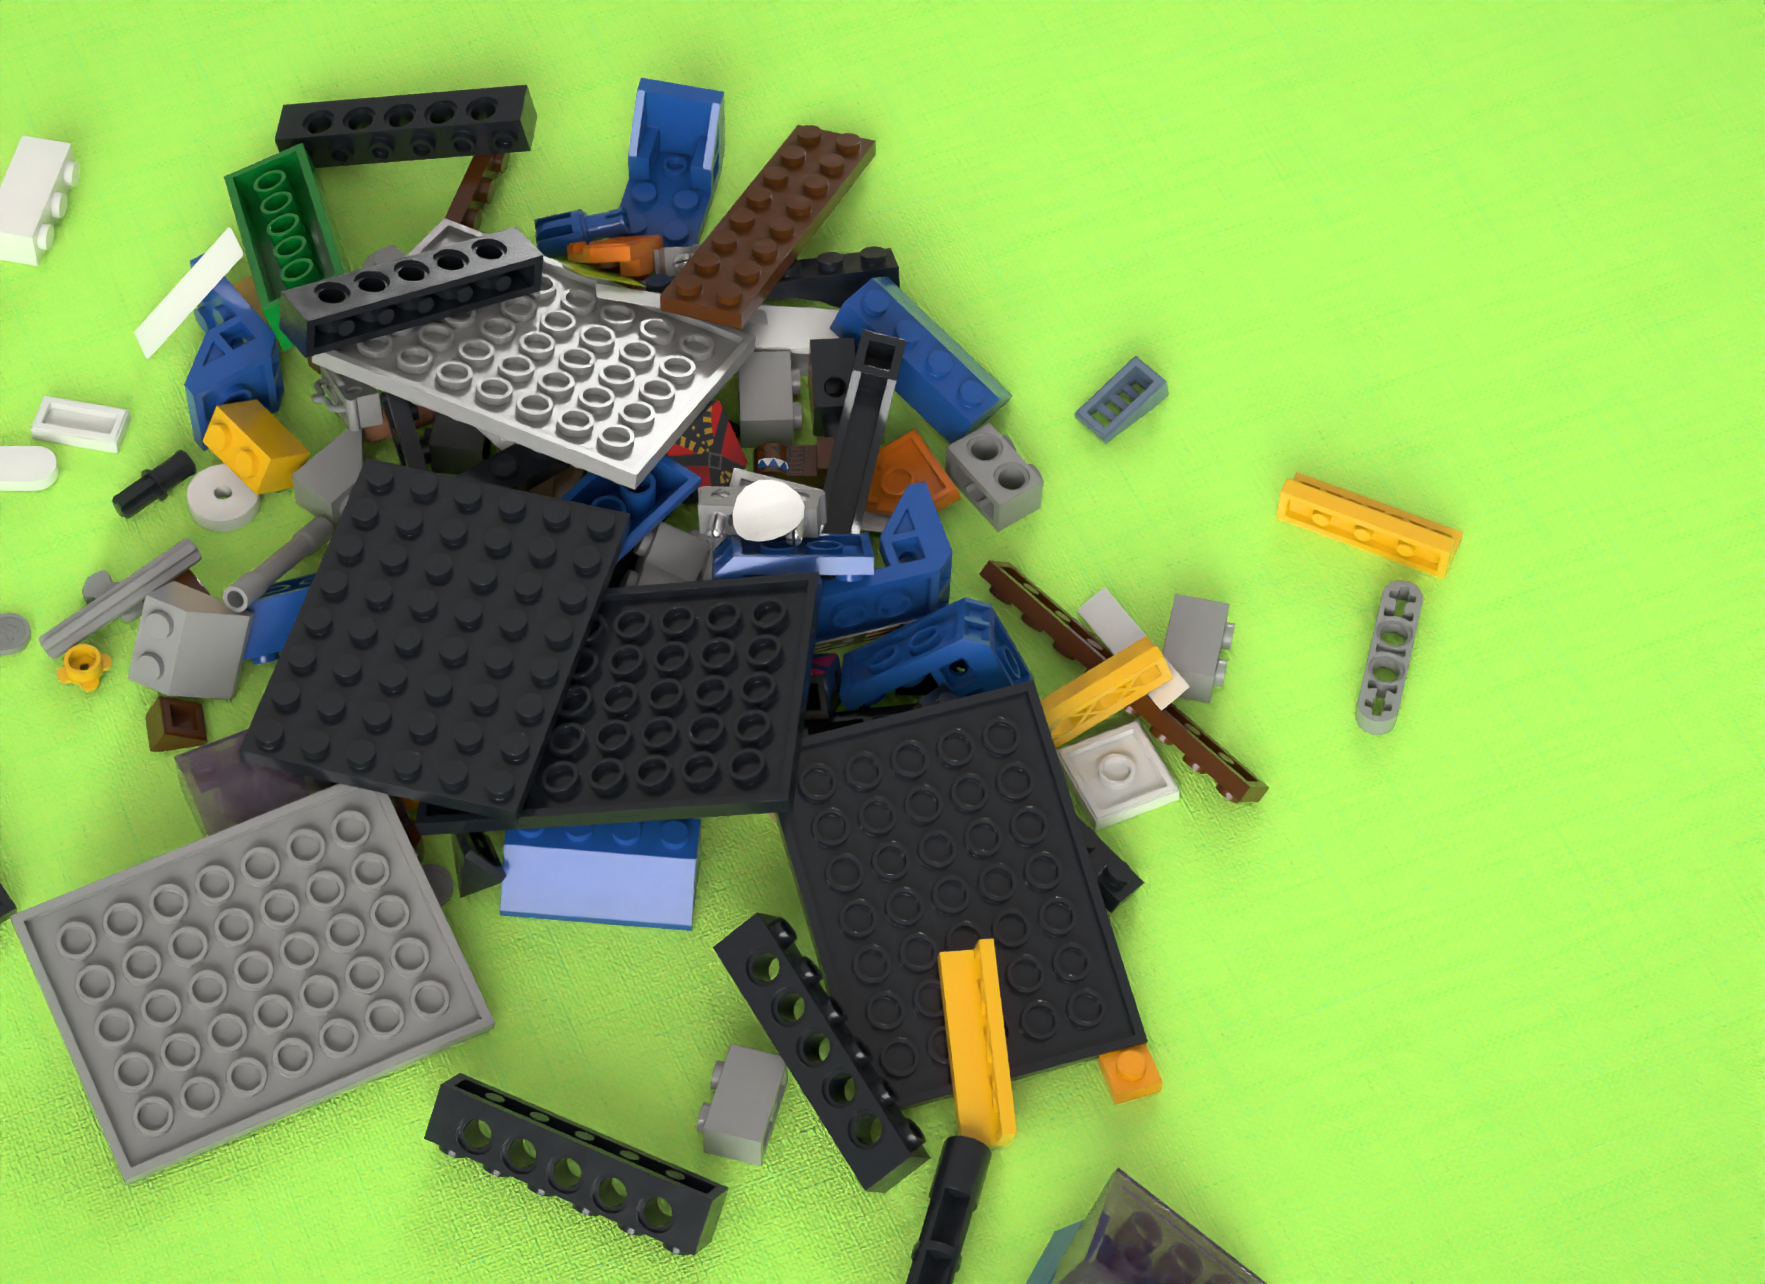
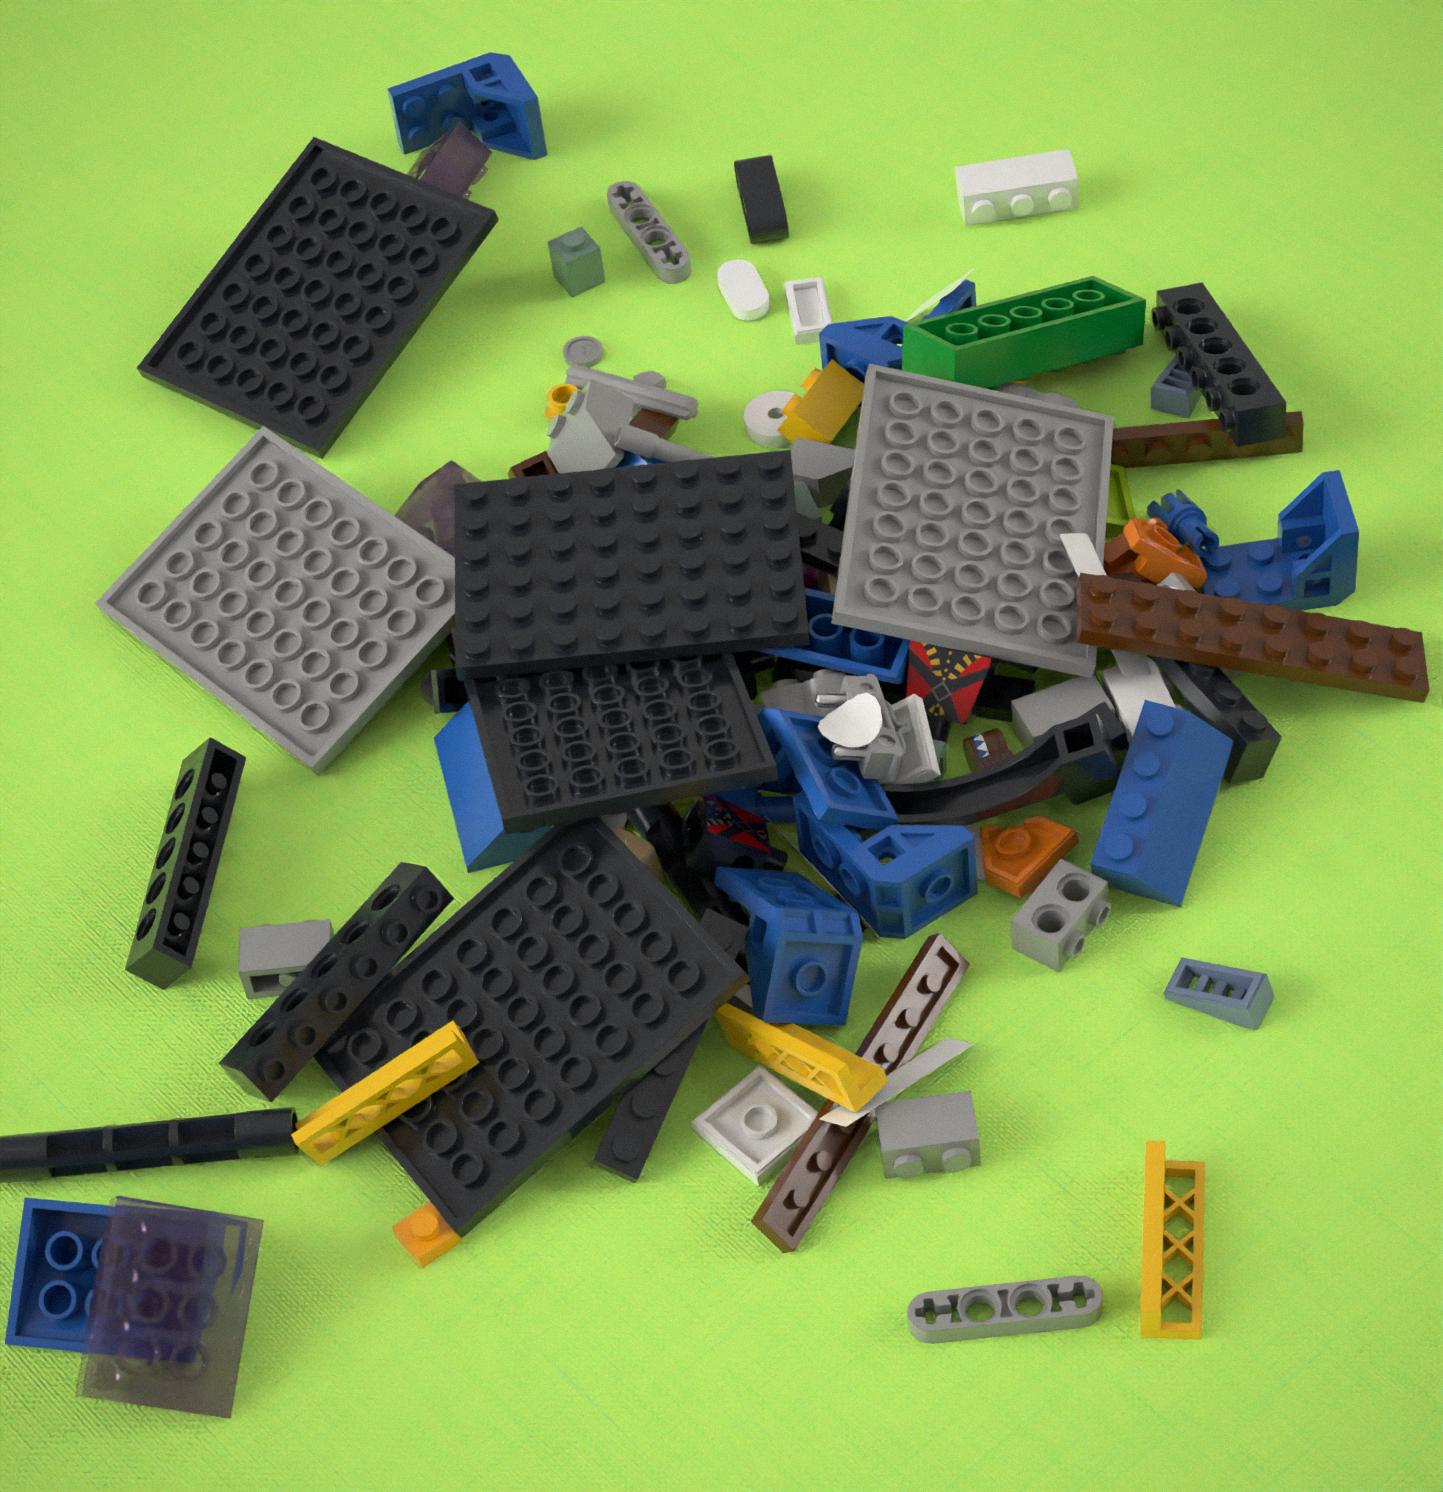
camera: 80 degrees right, 5 degrees down
(154, 484) = (765, 372): black axle -> none
(393, 195) = (1174, 391): none -> sand blue slope
(410, 291) = (972, 403): black brick -> none
(603, 273) = (1108, 536): lime sticker -> none

